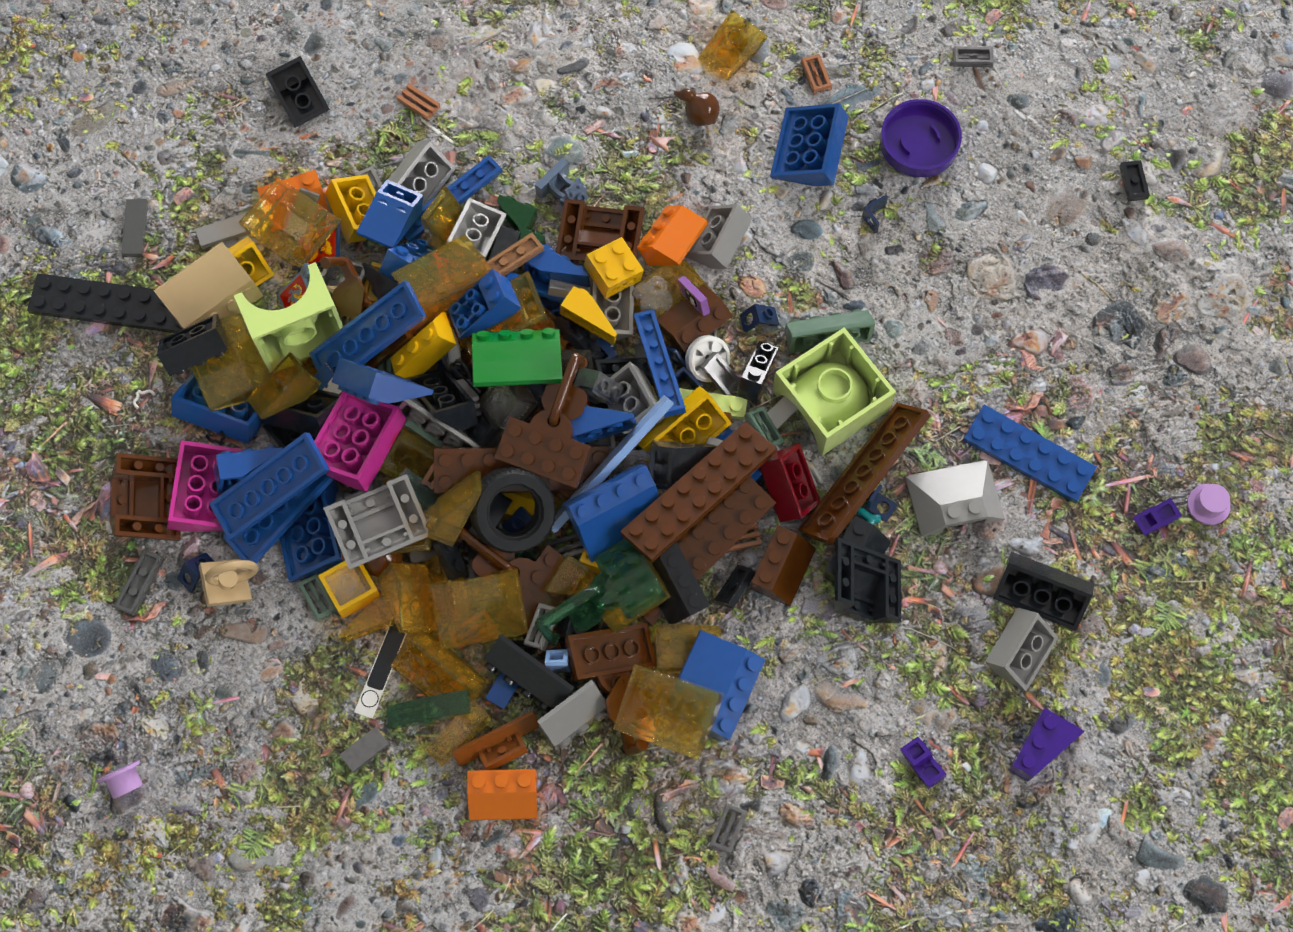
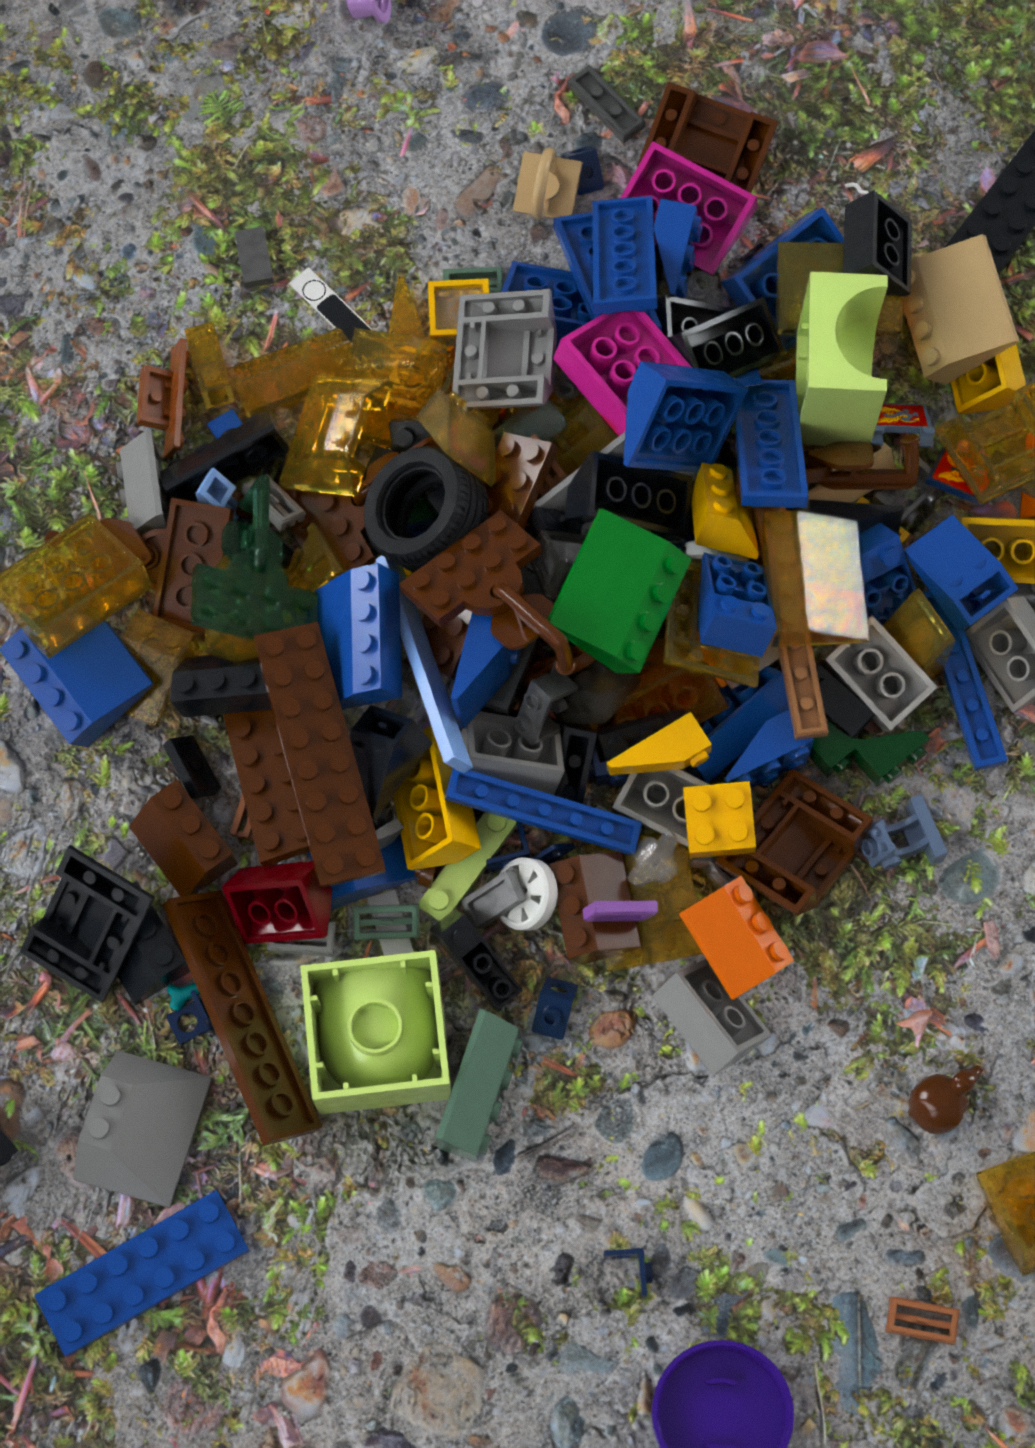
camera: 120 degrees right, 0 degrees up
(284, 387) = (756, 329): clear yellow slope -> none
(428, 709) = (251, 335): clear green slope -> none
(502, 794) = (108, 377): orange slope -> none
(562, 289) = (722, 754): light grey tile -> none
(810, 144) = (796, 1235): blue slope -> none

